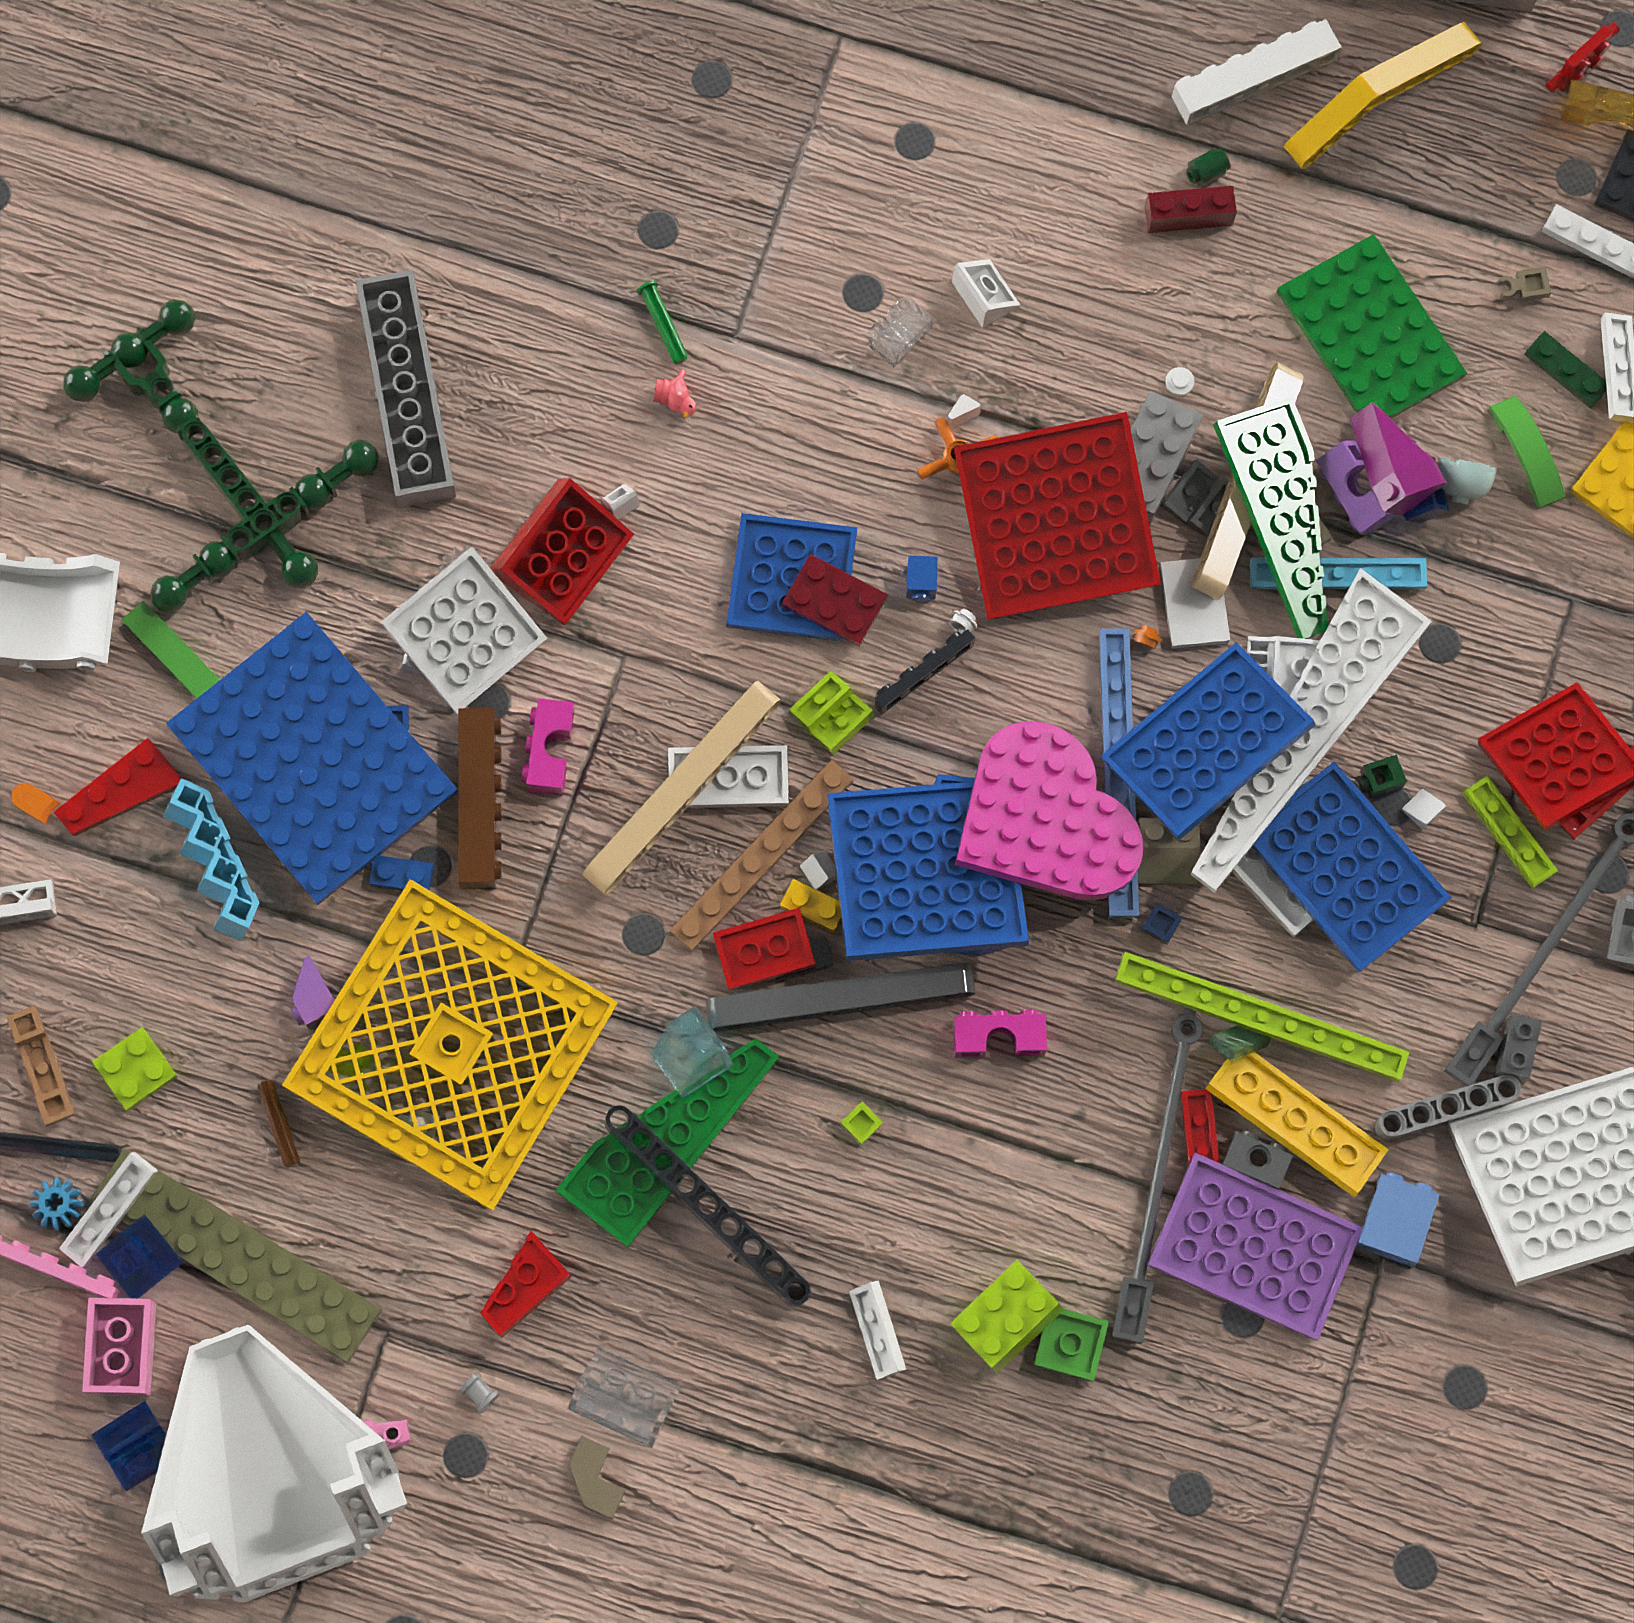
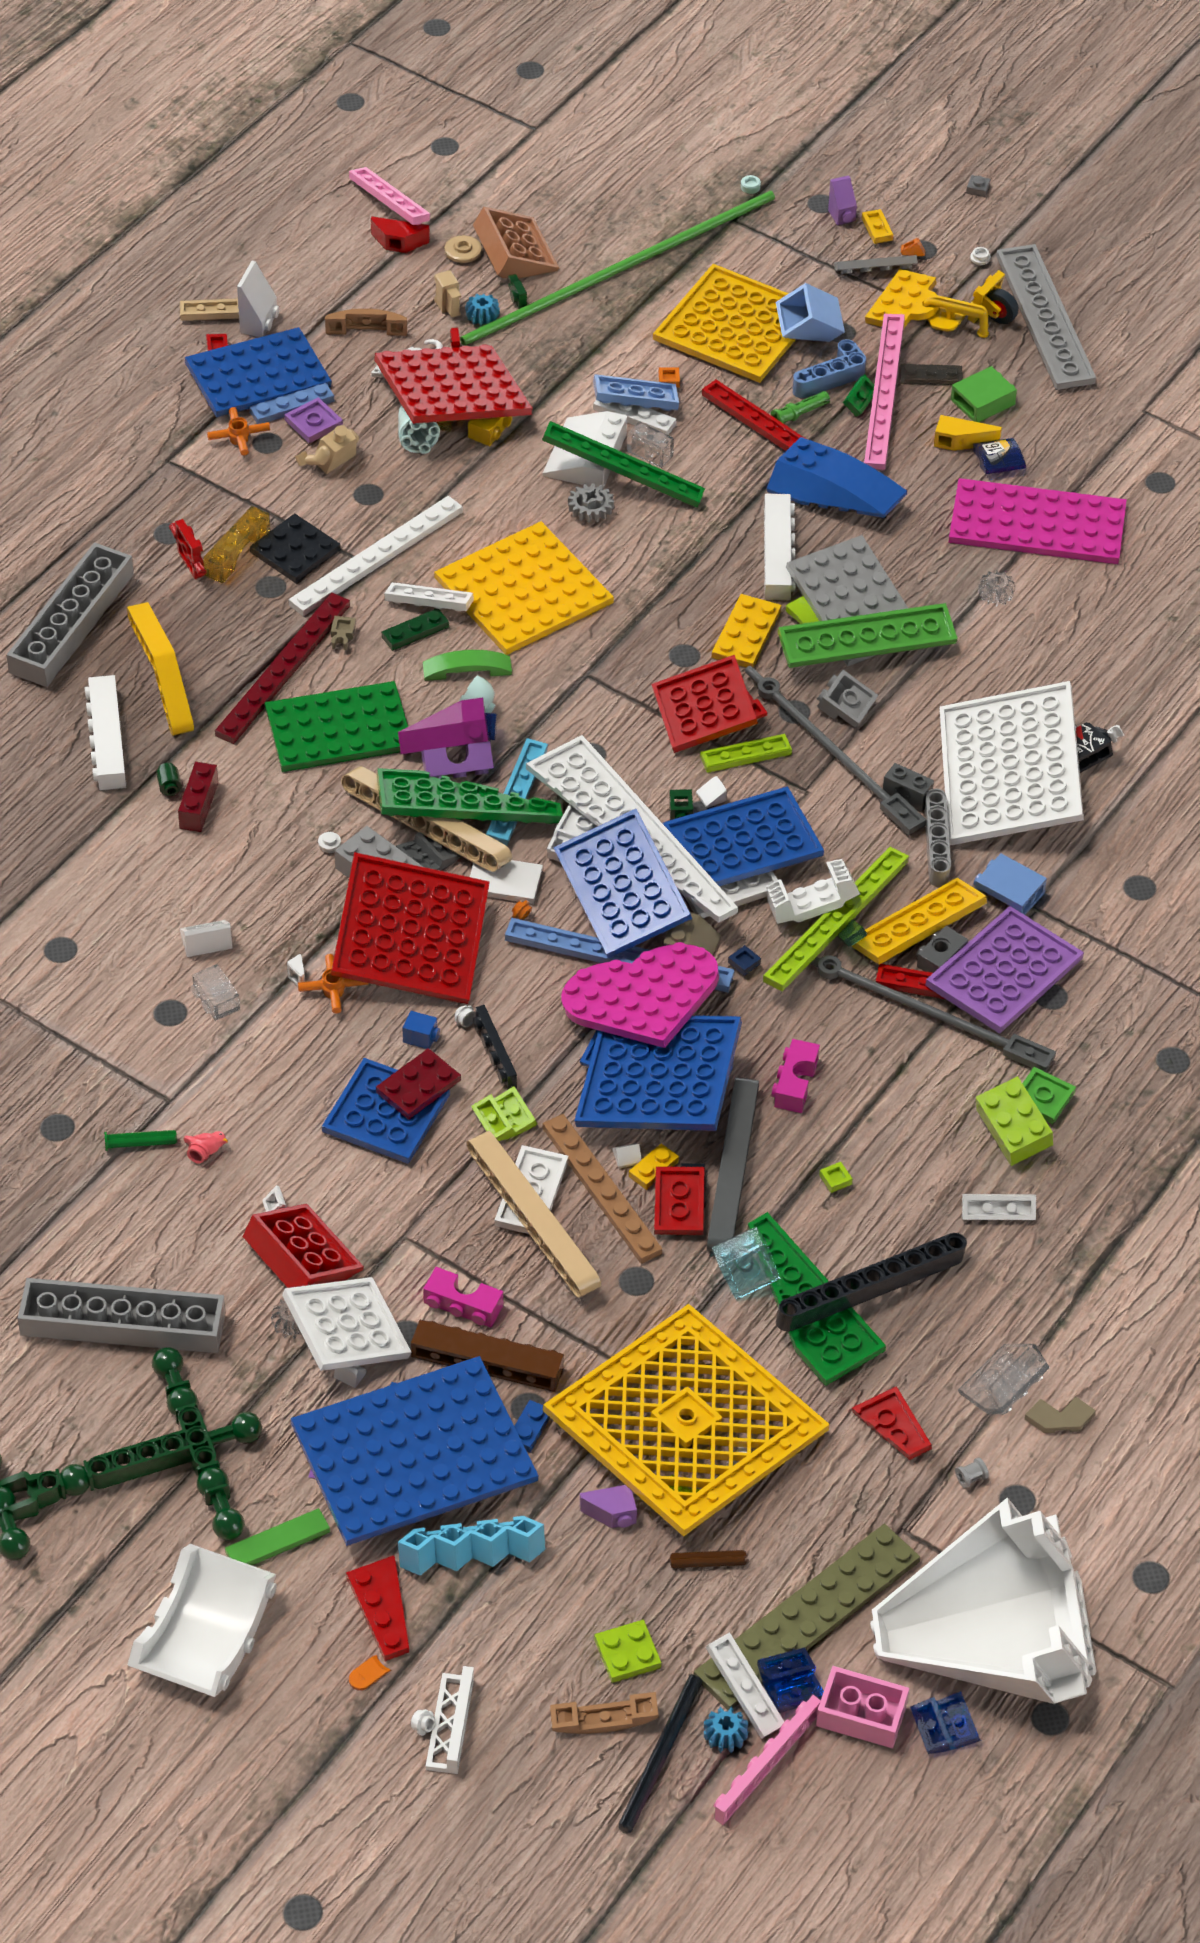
camera: 70 degrees left, 25 degrees down
(1282, 978) = (813, 899): none -> white plate
(1443, 236) = (281, 669): none -> dark red plate

